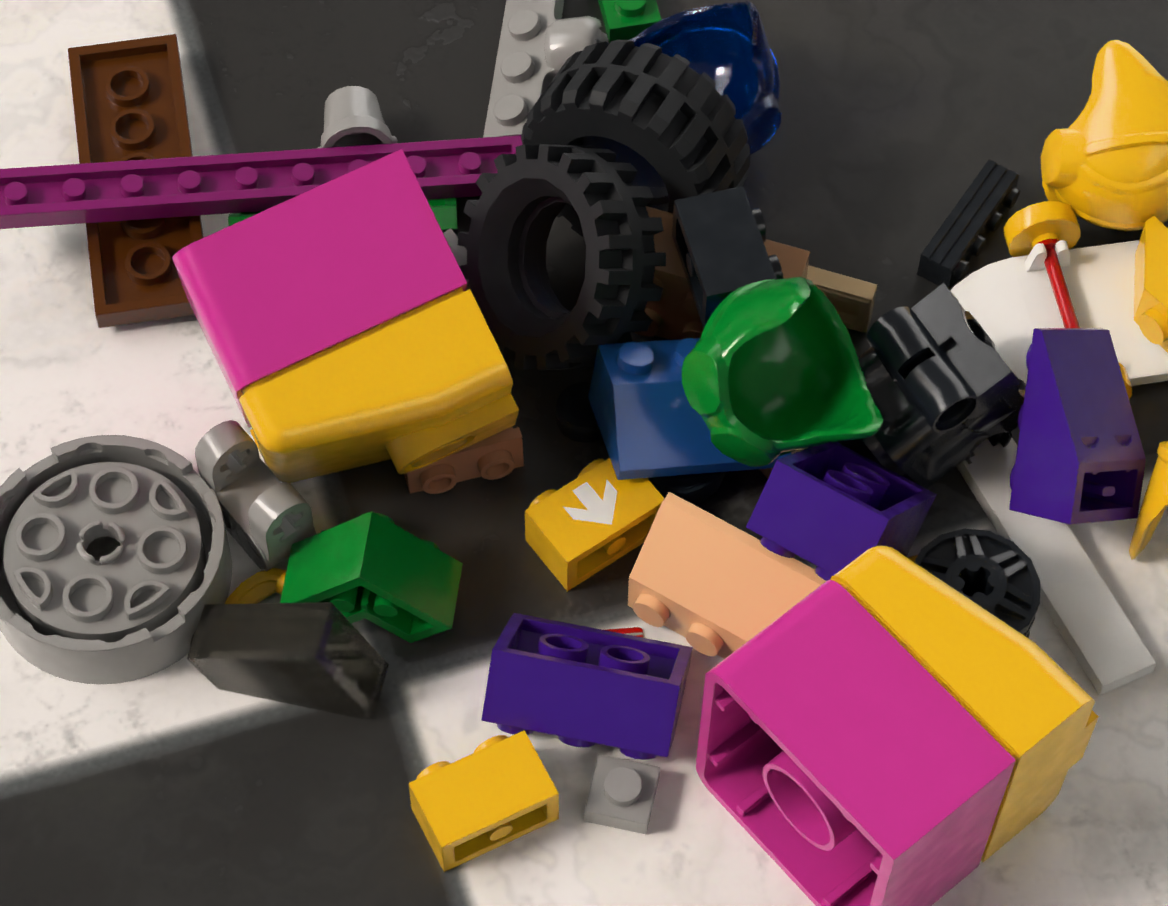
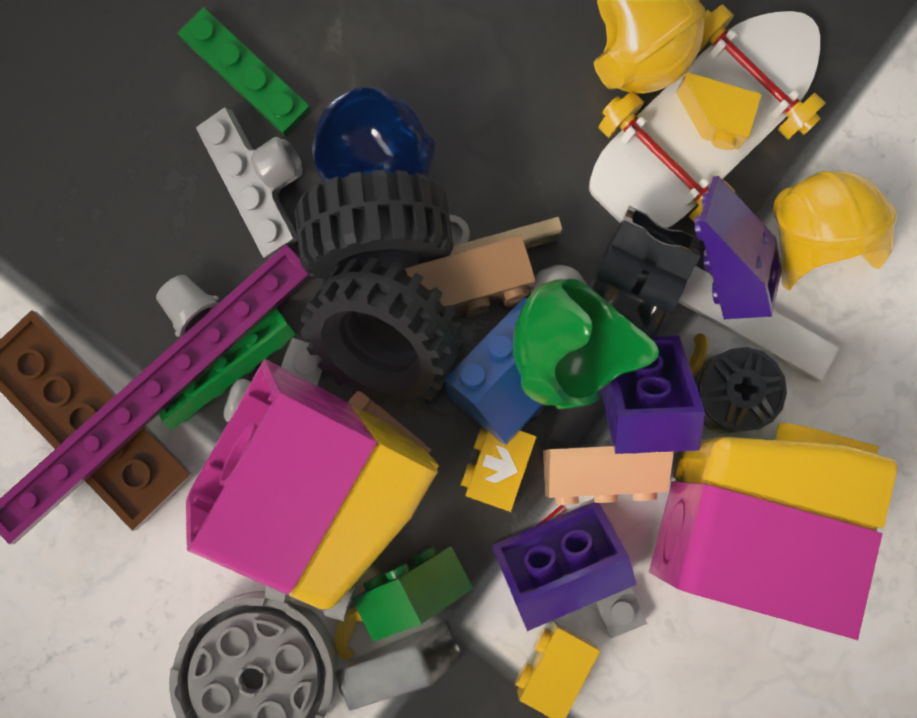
camera: 35 degrees left, 25 degrees up
(721, 246) = (484, 279): black brick -> none
(968, 224) = (572, 131): black piece -> none

